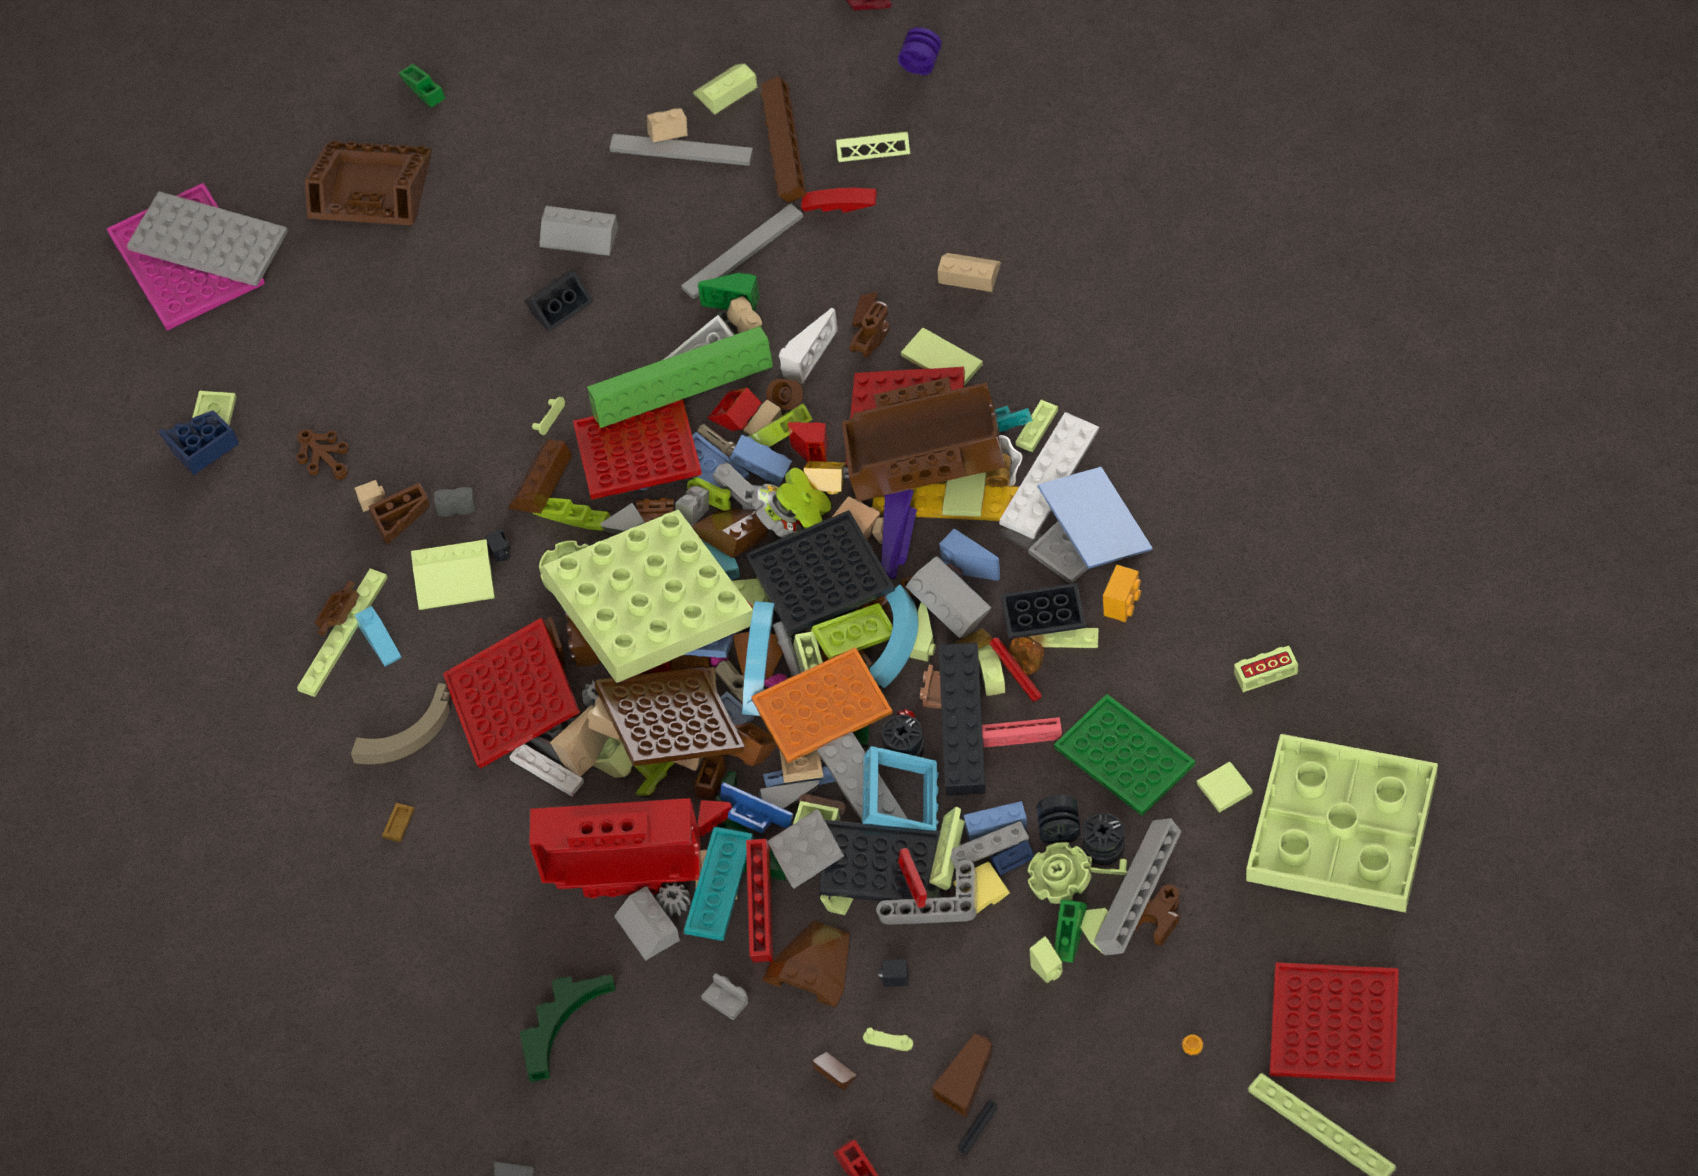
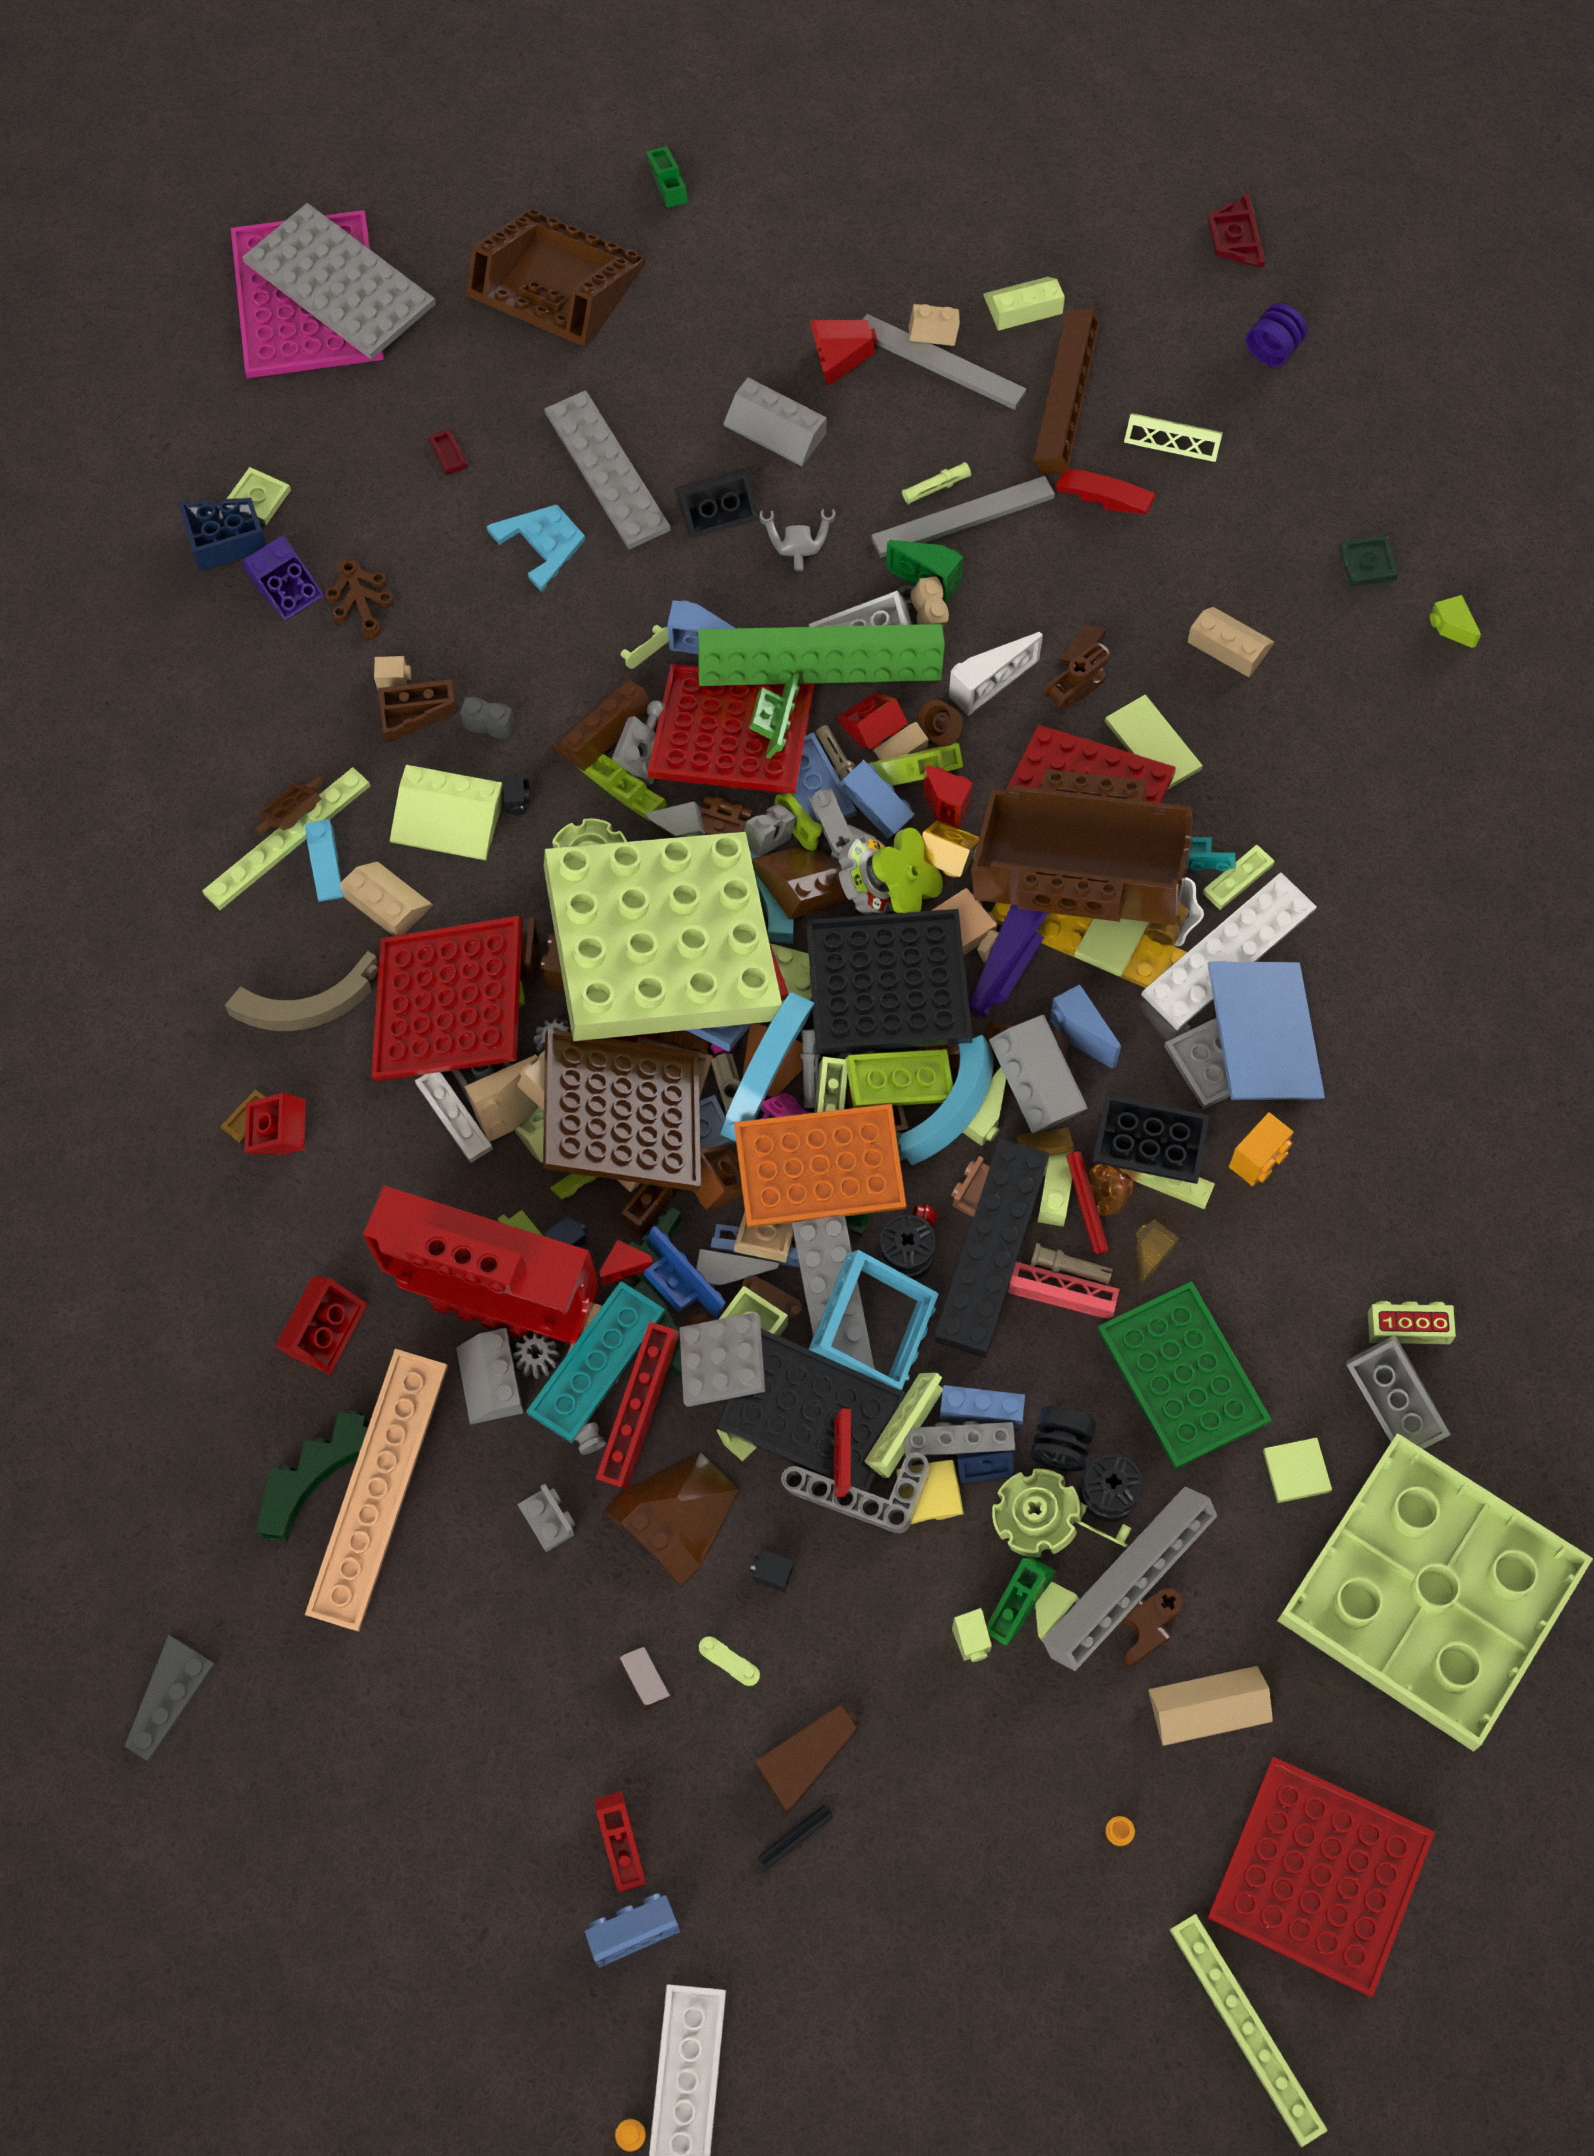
camera: 15 degrees right, 10 degrees up
(259, 458) = (282, 578): none -> dark purple slope
(342, 332) = (448, 452): none -> dark red tile
(422, 819) = (275, 1125): none -> red slope
(432, 647) = (384, 898): none -> tan slope
(443, 363) = (550, 535): none -> medium azure wing
(467, 305) = (607, 470): none -> light grey plate
(513, 933) = (321, 1324): none -> red slope
(573, 480) = (636, 734): none -> light grey plate
(575, 390) = (684, 623): none -> medium blue slope
(600, 1017) = (376, 1490): none -> light nougat plate
(605, 161) = (842, 345): none -> red slope
(628, 305) = (798, 539): none -> light grey piece
(664, 428) = (772, 714): none -> bright green bracket
(718, 230) = (944, 479): none -> yellowish green pin
(734, 938) = (590, 1439): none -> light grey wheel
(1010, 714) = (1058, 1261): none -> dark tan pin
(1045, 184) = (1368, 560): none -> clear green plate
(1072, 682) = (1152, 1248): none -> clear yellow slope
(1123, 205) = (1455, 621): none -> lime slope
(1223, 949) = (1211, 1705): none -> tan slope
(1271, 712) = (1397, 1394): none -> light grey slope

